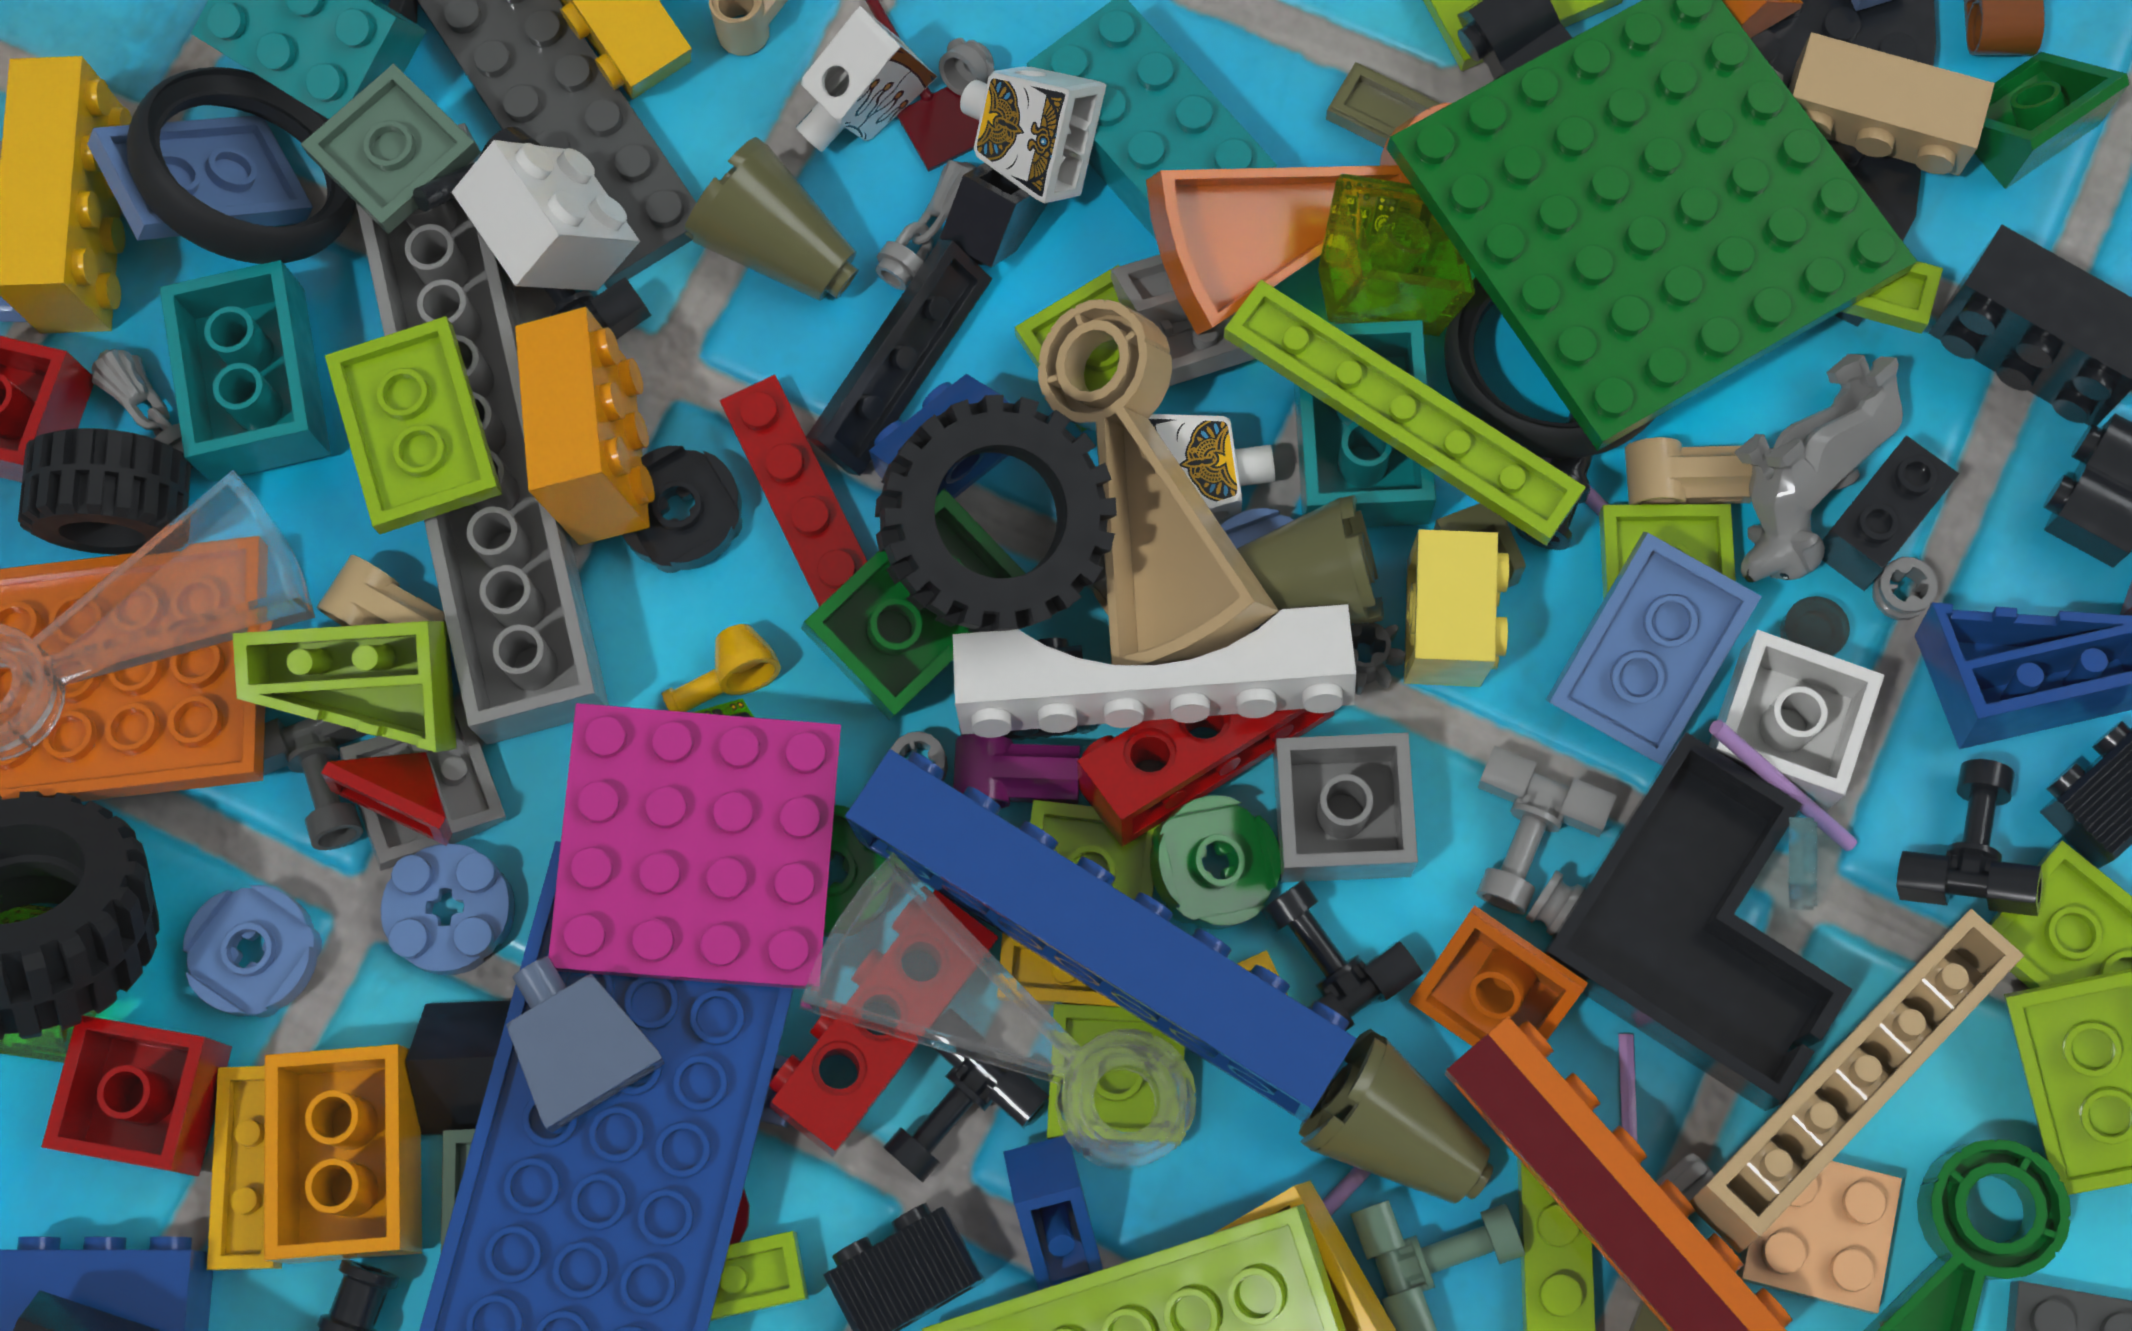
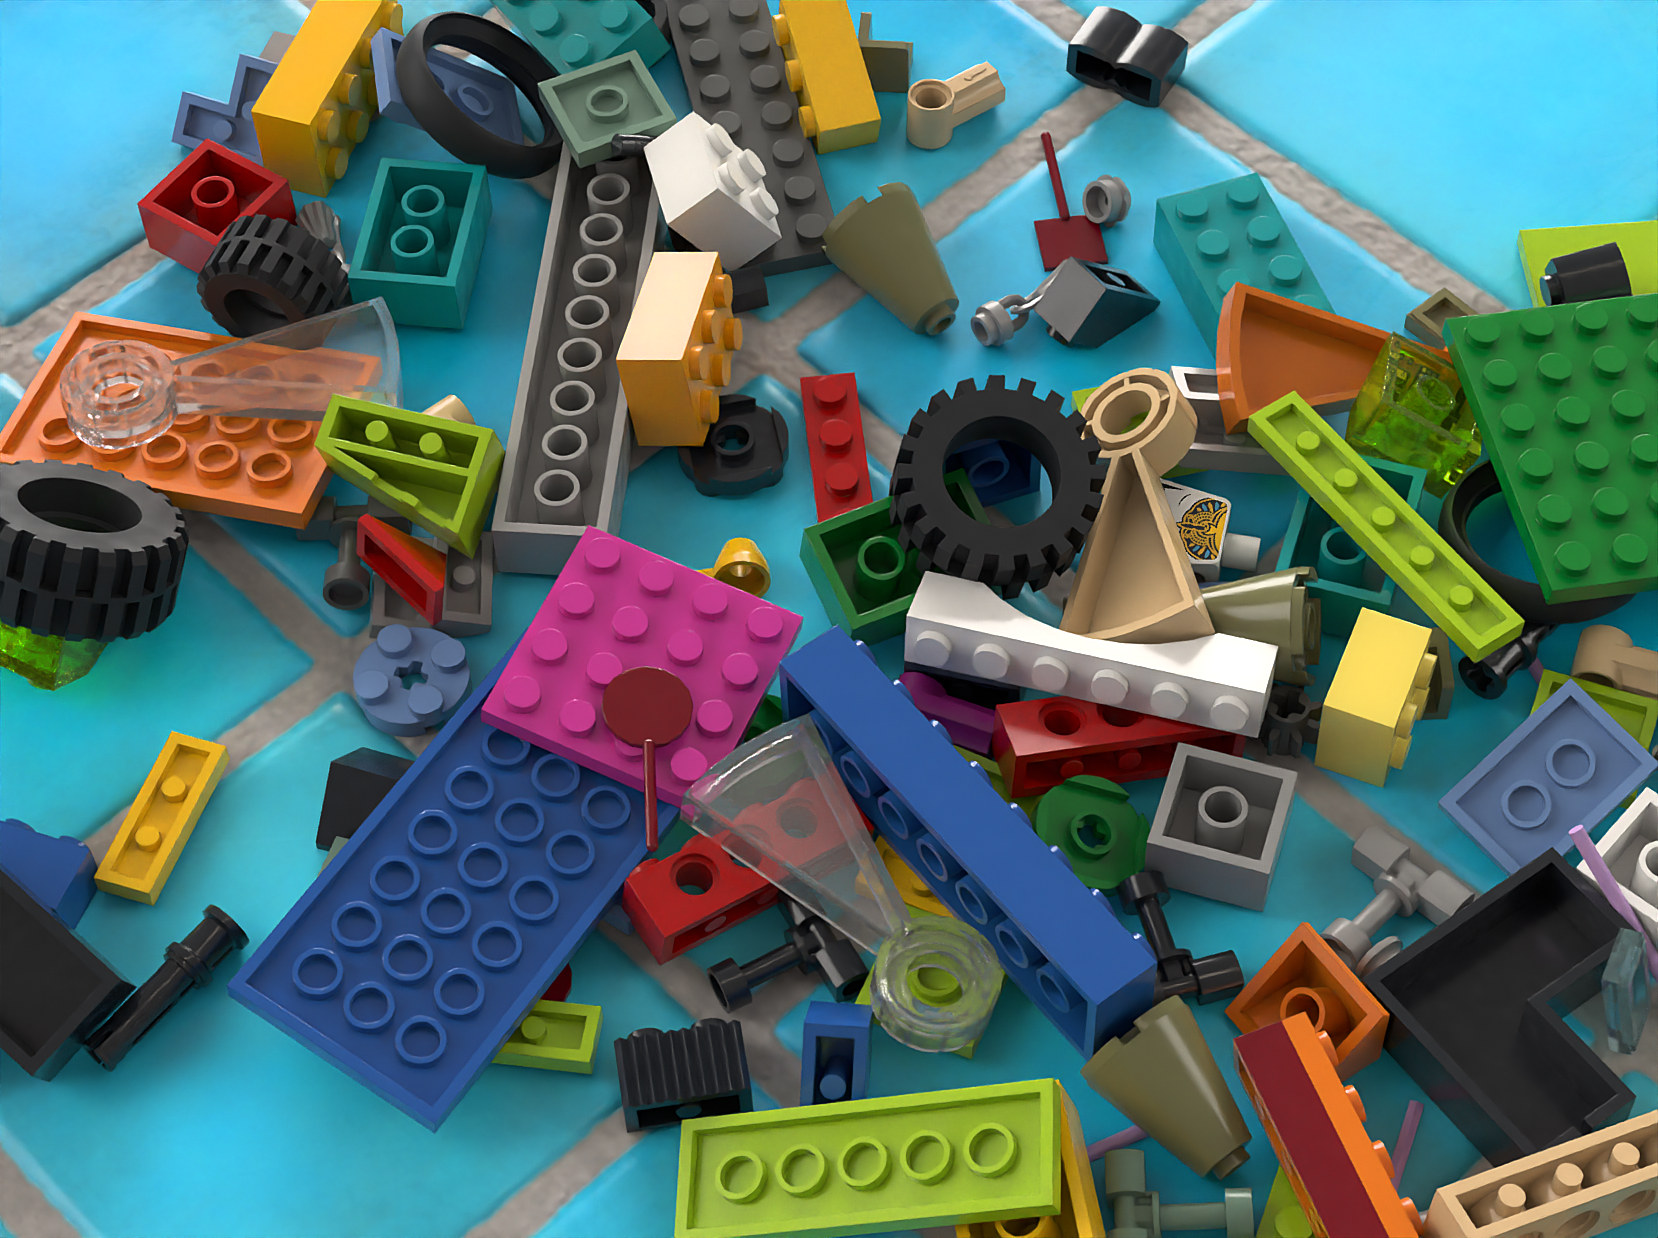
camera: 15 degrees right, 20 degrees down
(136, 1095) = (97, 726): red brick -> none
(214, 960) = (240, 687): medium blue plate -> none
(341, 1156) = (244, 823): light orange brick -> none
(413, 425) = (541, 300): lime plate -> none
(575, 1044) = (482, 775): sand blue torso -> none
(721, 908) = (647, 711): none -> dark red piece
(861, 81) = (1013, 179): white torso -> none
(899, 356) = (1017, 351): black plate -> none
(1036, 128) = (1147, 245): white torso -> none

